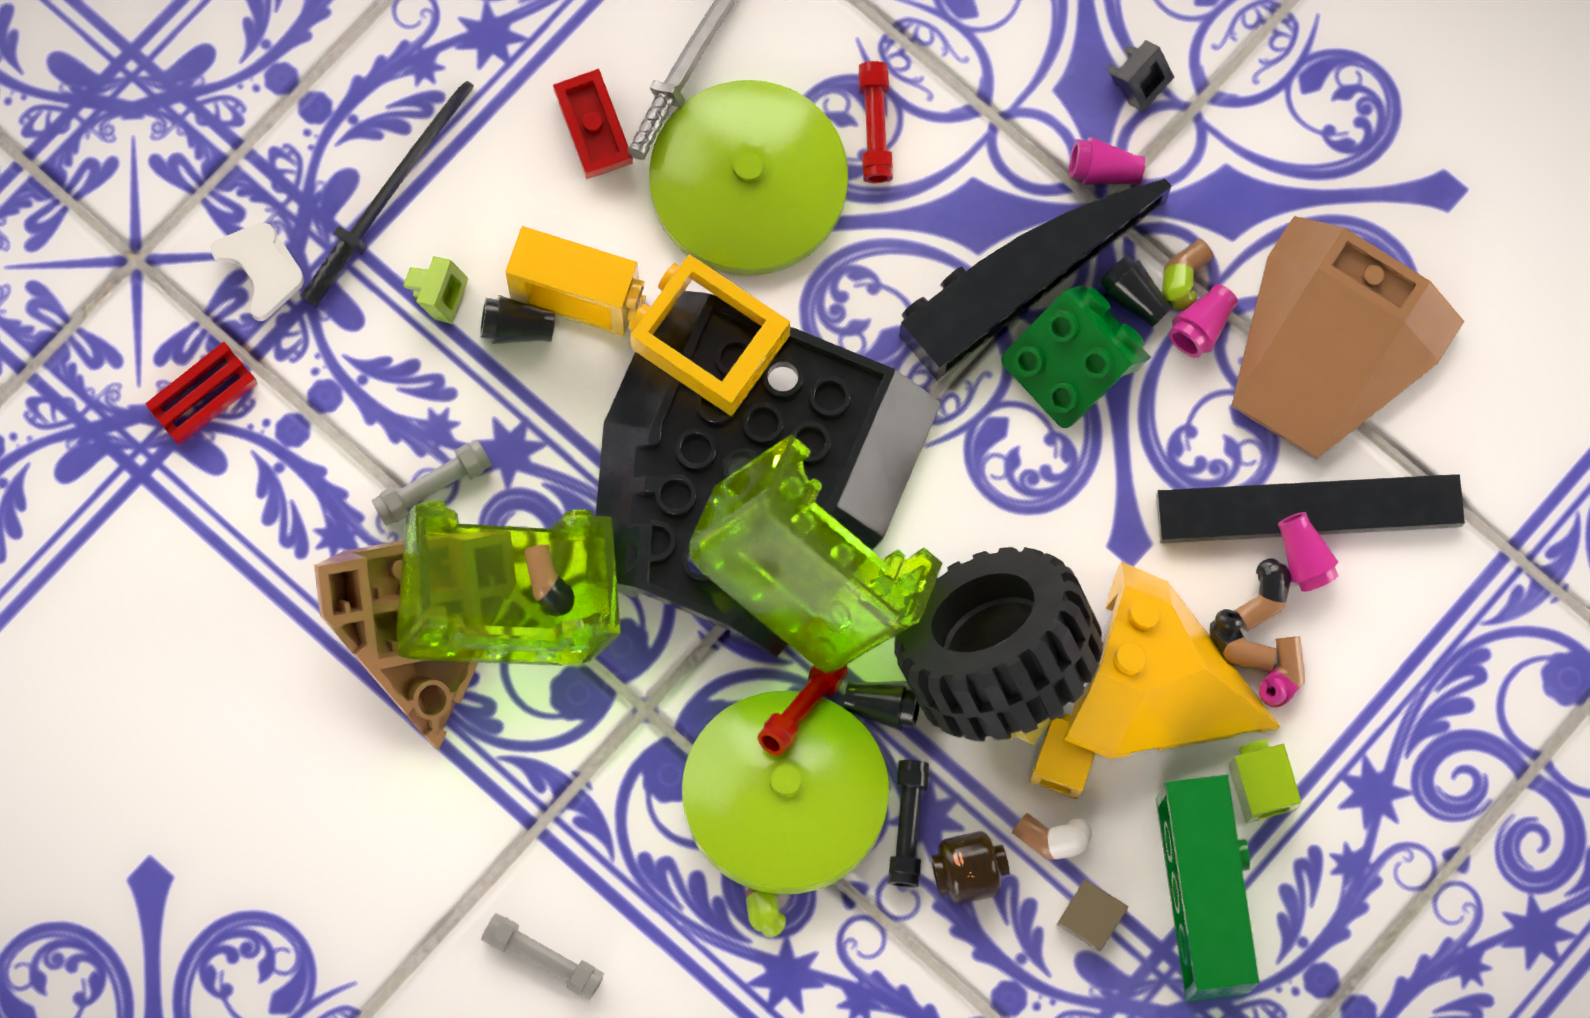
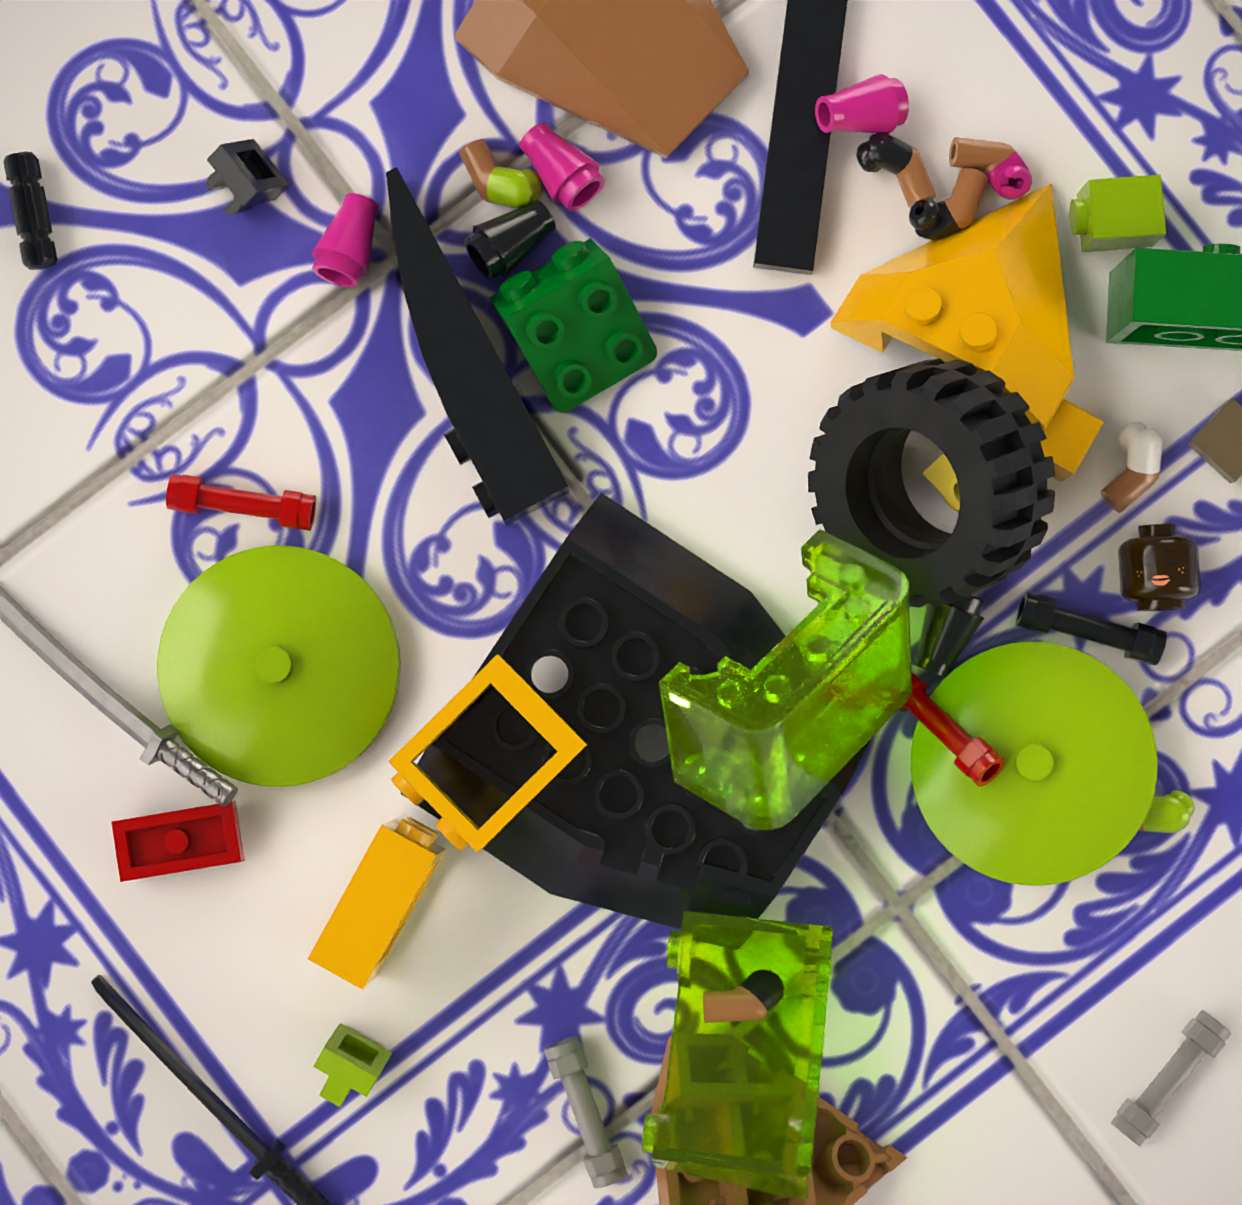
camera: 80 degrees left, 10 degrees up
(514, 321) = (408, 978): black cone -> none

